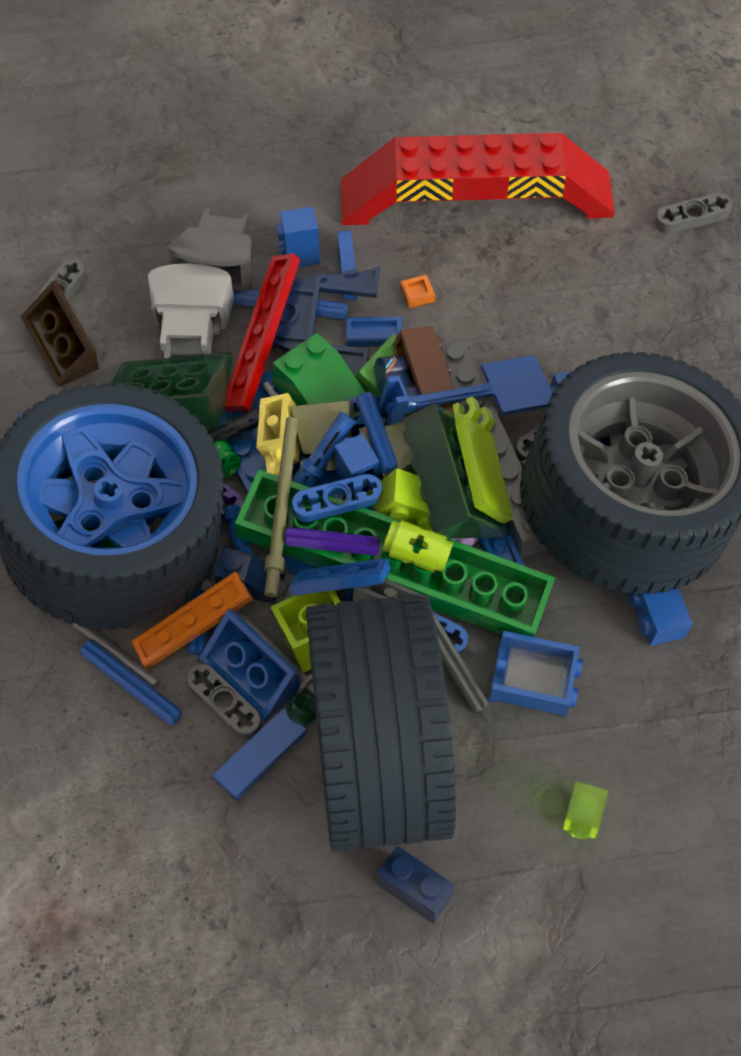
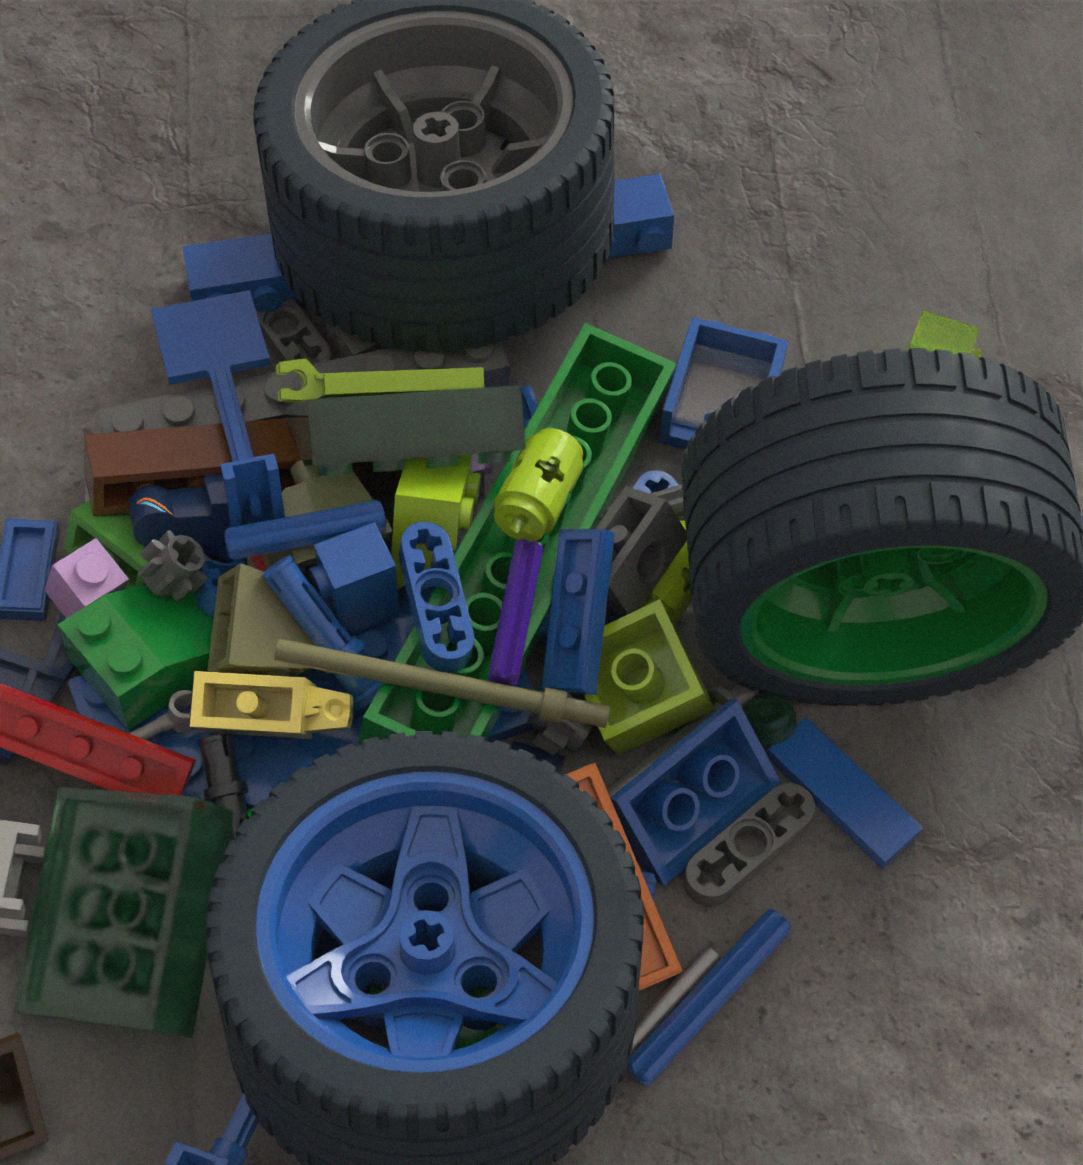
camera: 90 degrees left, 0 degrees up
(352, 347) = (84, 578): none -> lavender brick
(364, 375) = (173, 566): none -> dark grey gear

